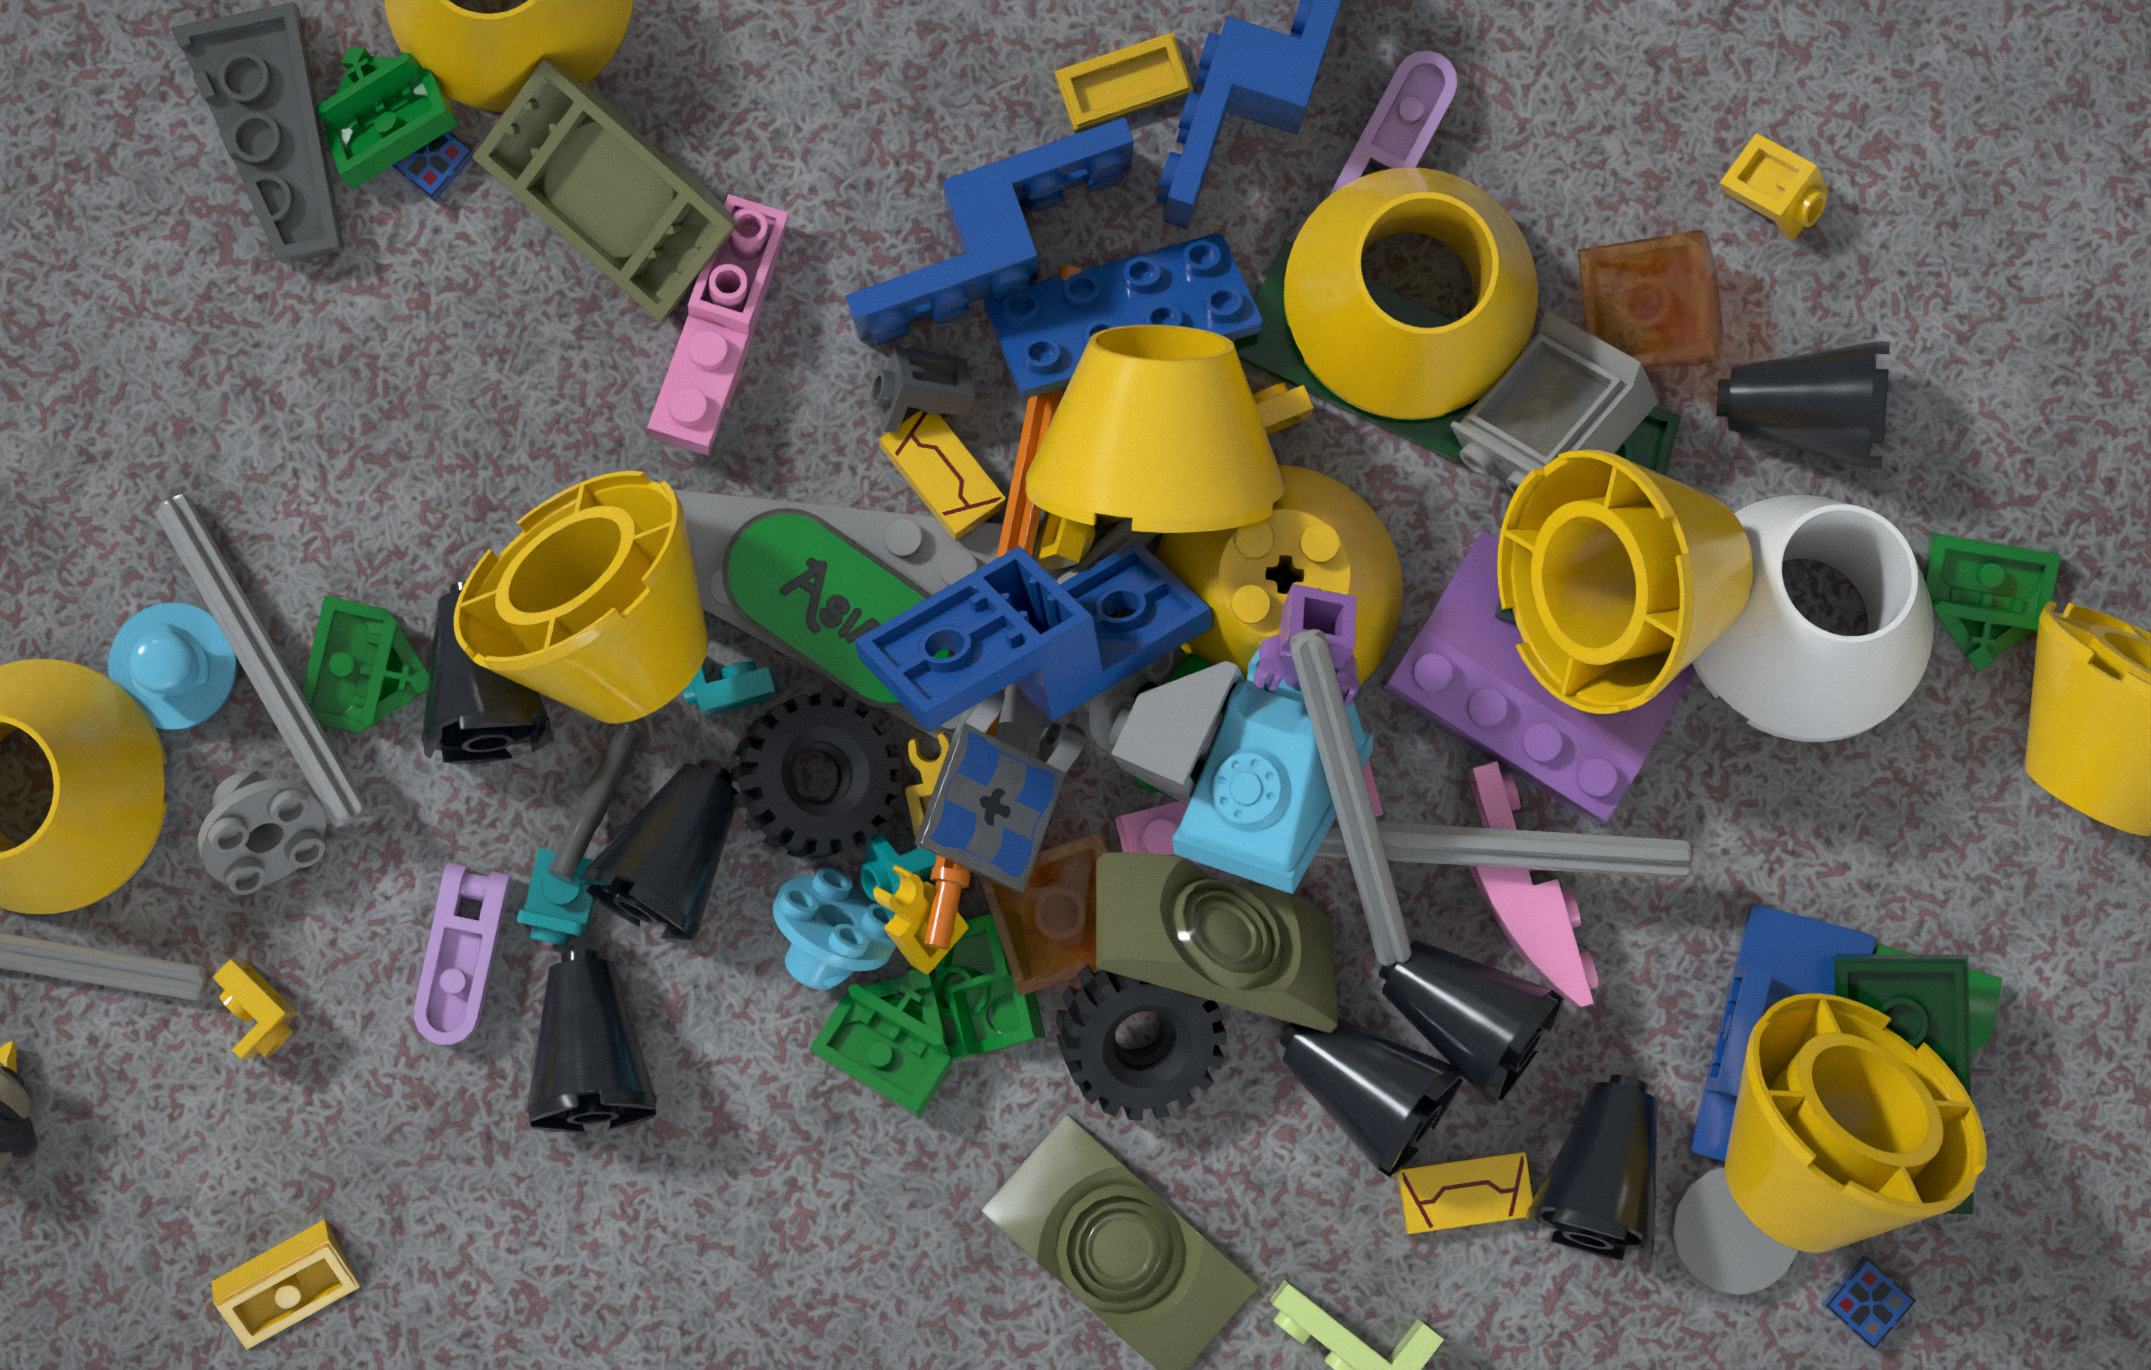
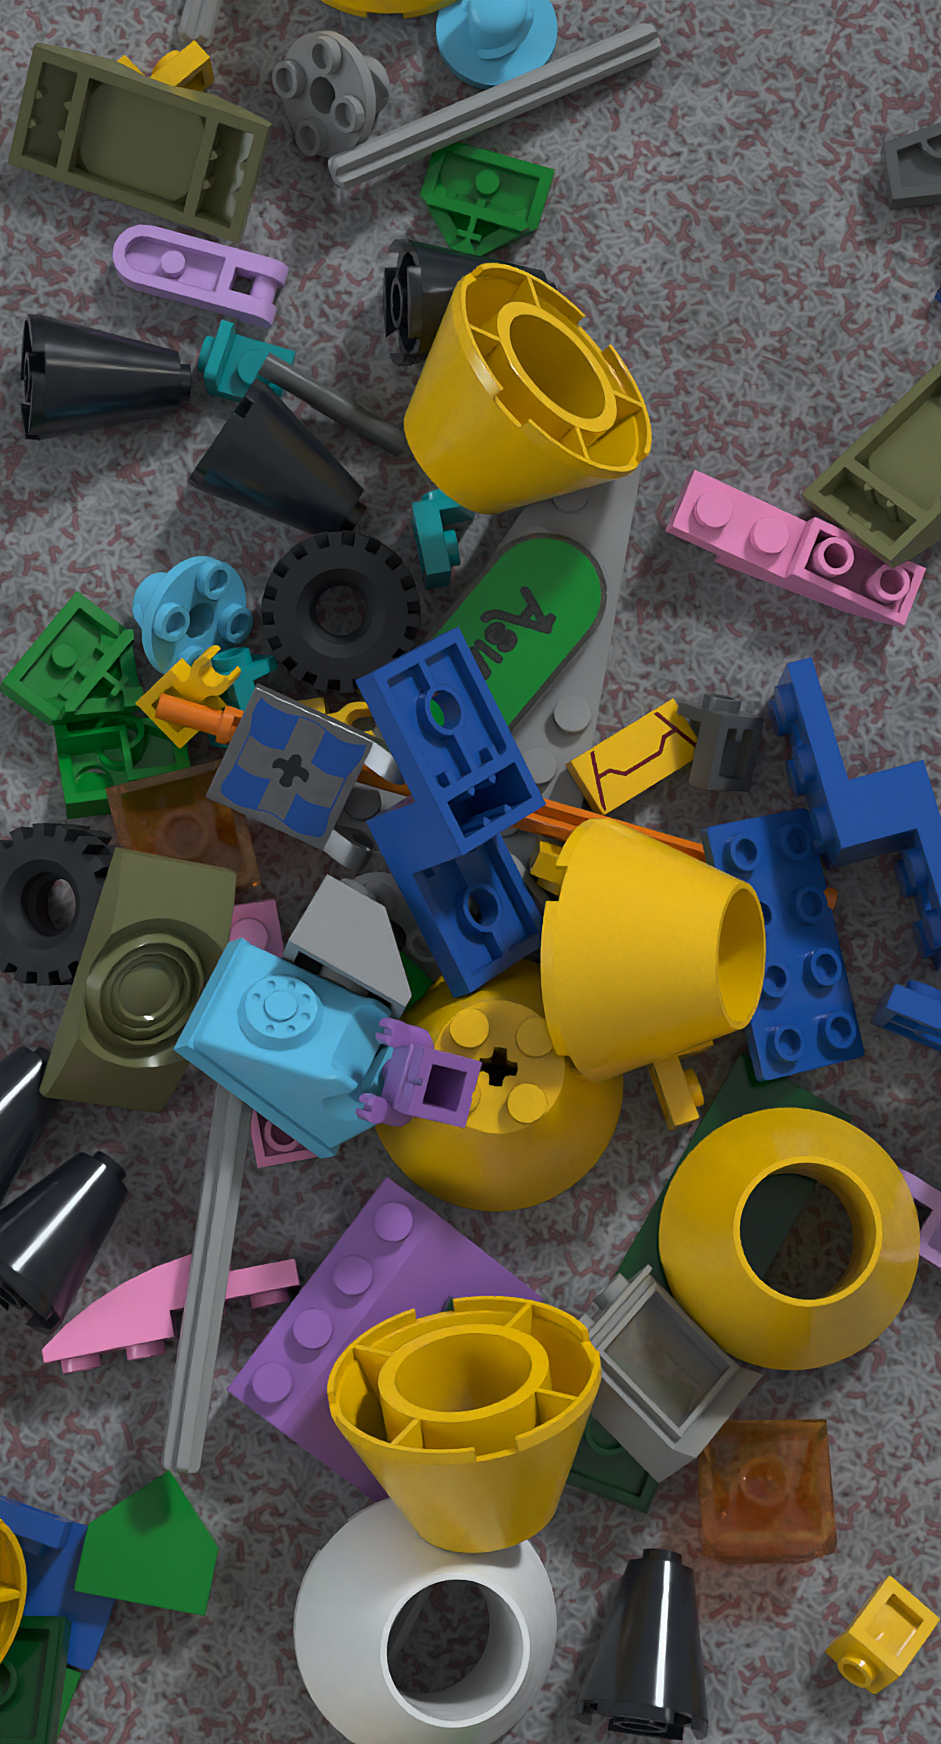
camera: 95 degrees right, 5 degrees down
(327, 1024) = (139, 140): none -> olive slope
(1350, 796) = (267, 1112): light grey axle -> none
(1759, 886) = (151, 1551): none -> green slope

